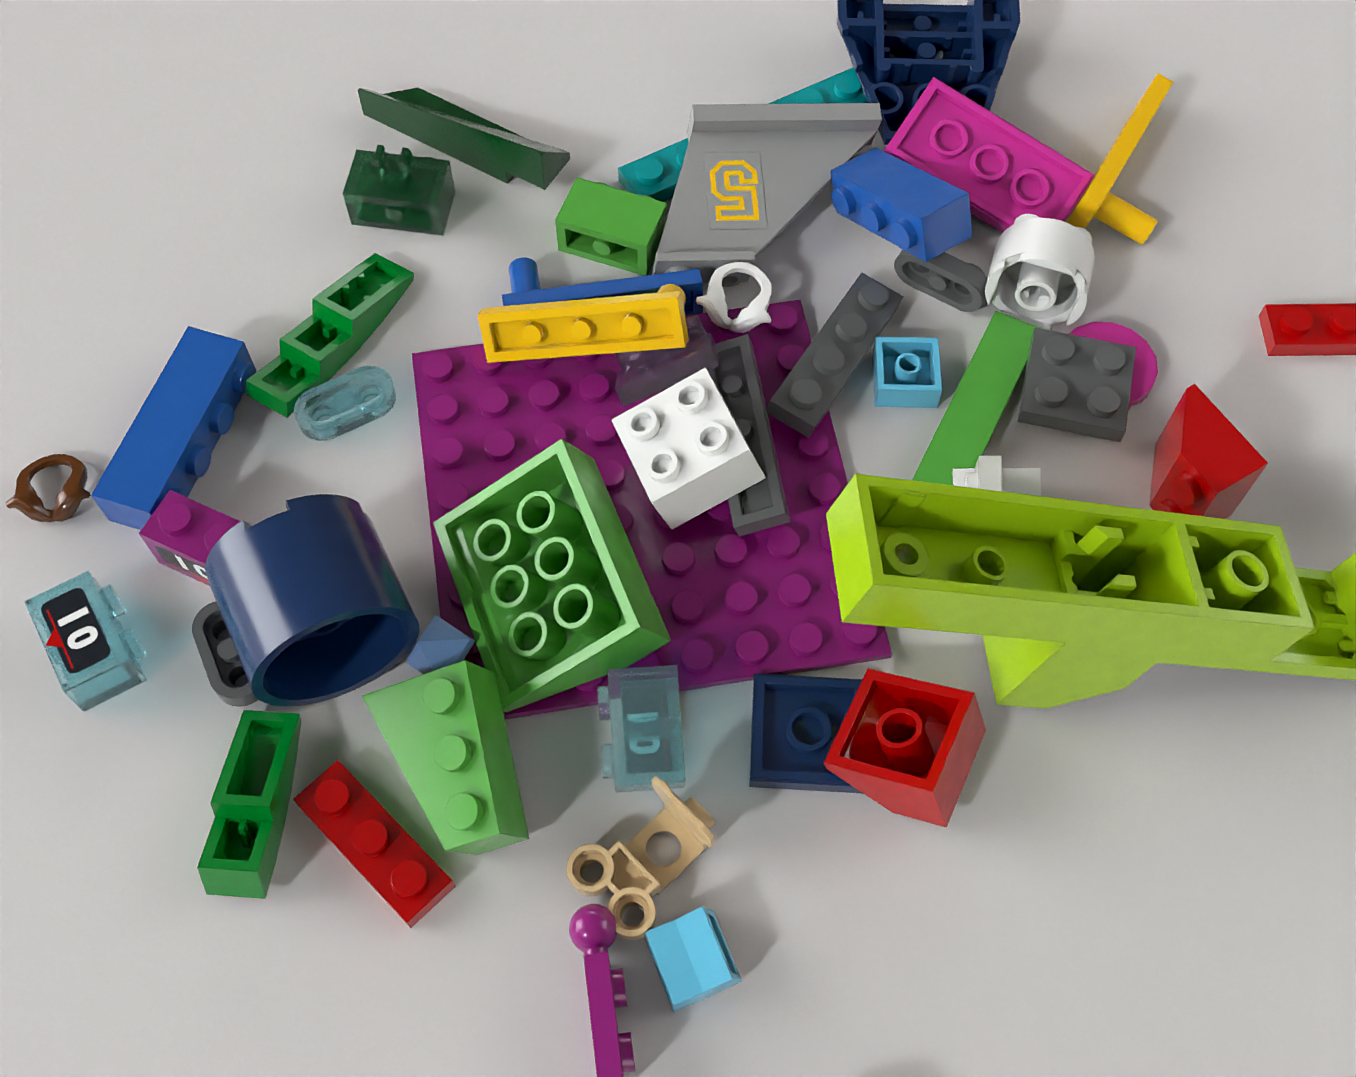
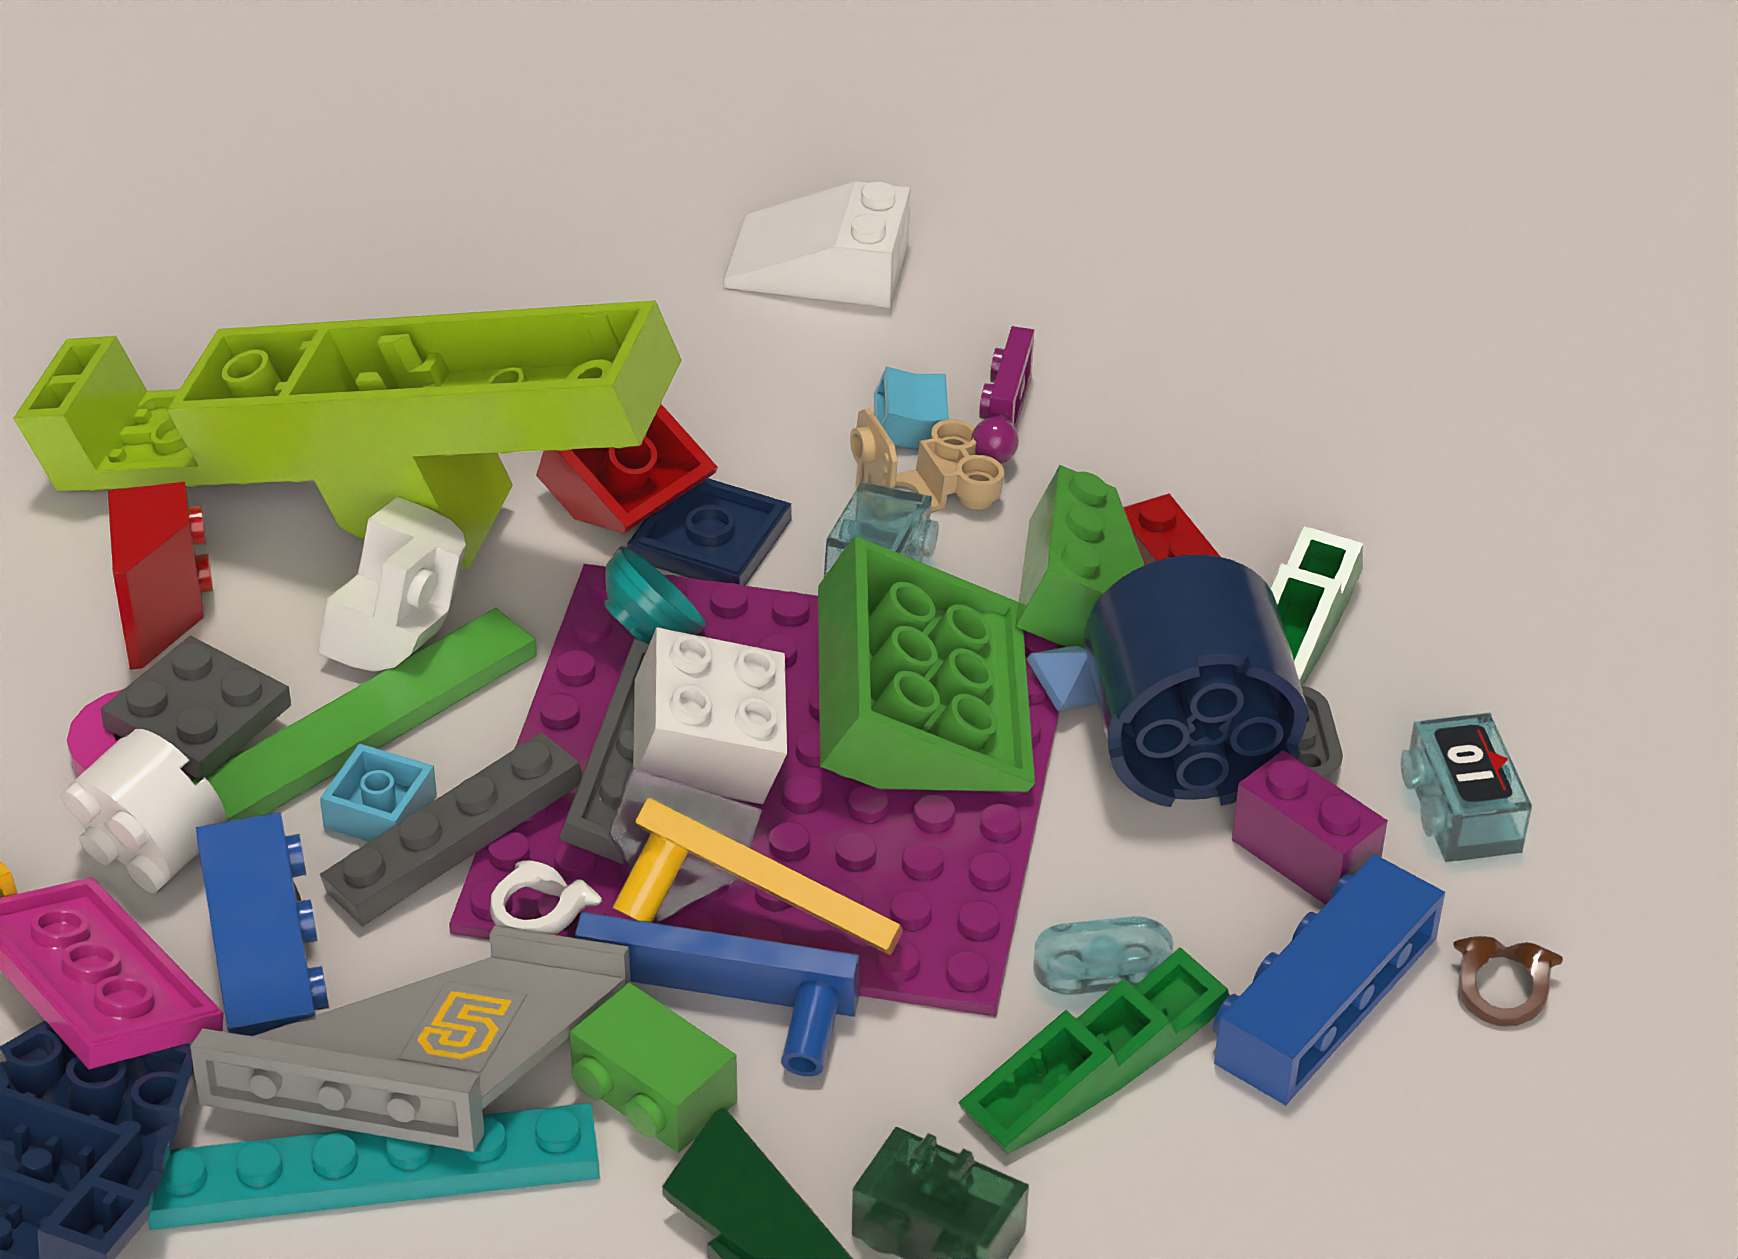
camera: 160 degrees left, 20 degrees down
(776, 578) = (647, 599): none -> teal piece

